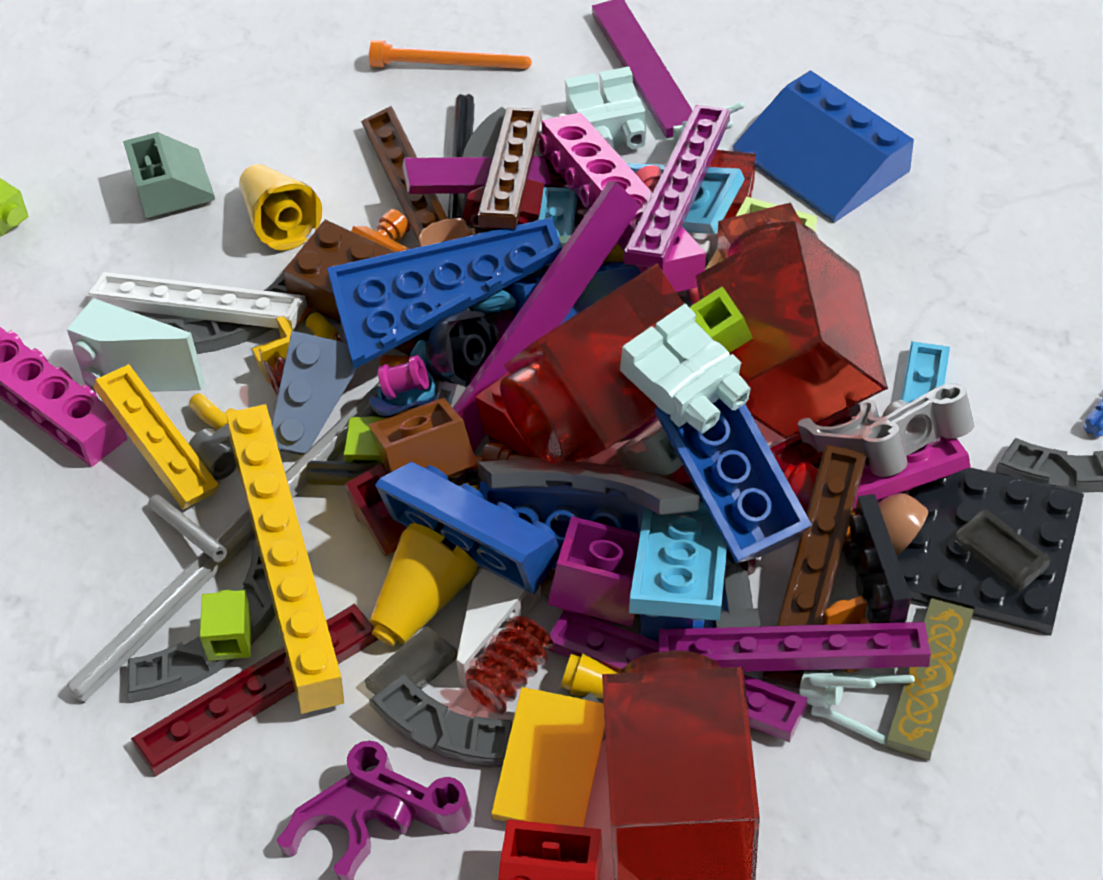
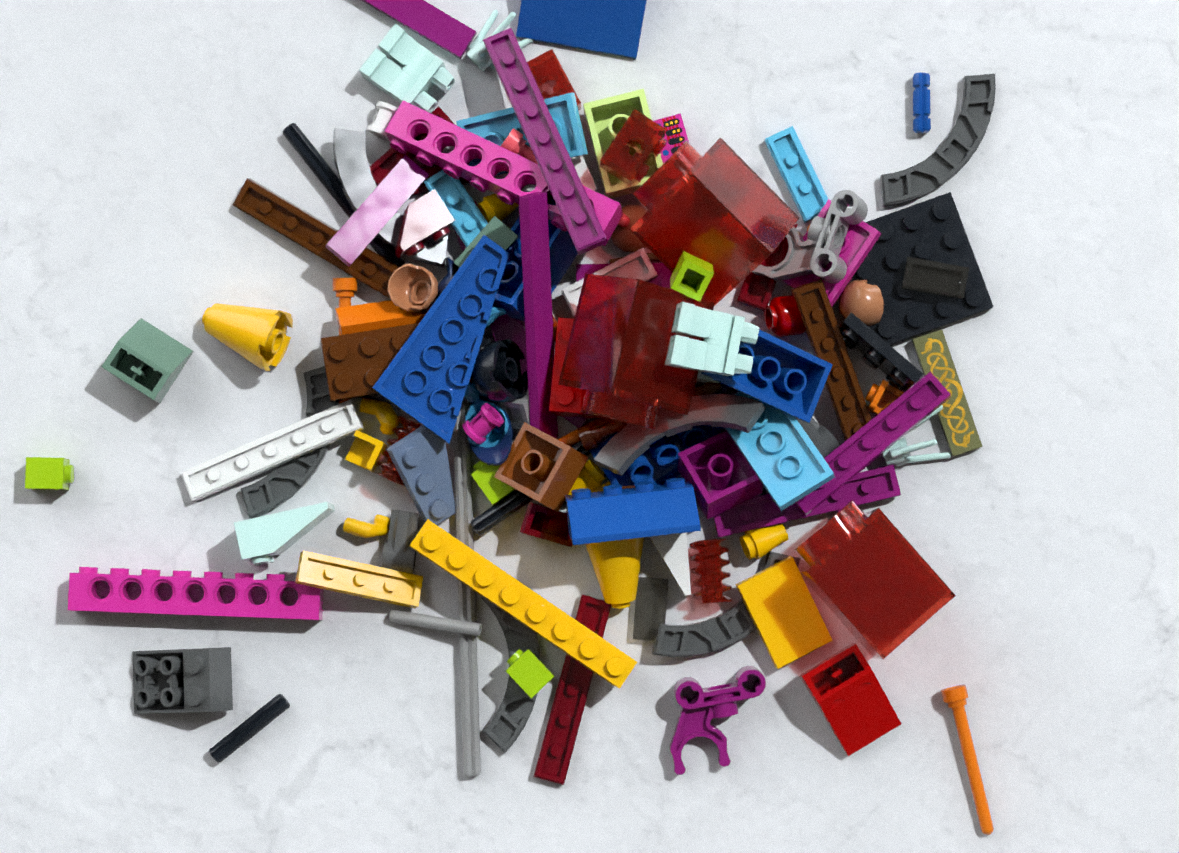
camera: 40 degrees left, 35 degrees up
(383, 53) = (190, 125): orange piece -> none
(510, 168) = (407, 198): tile -> none

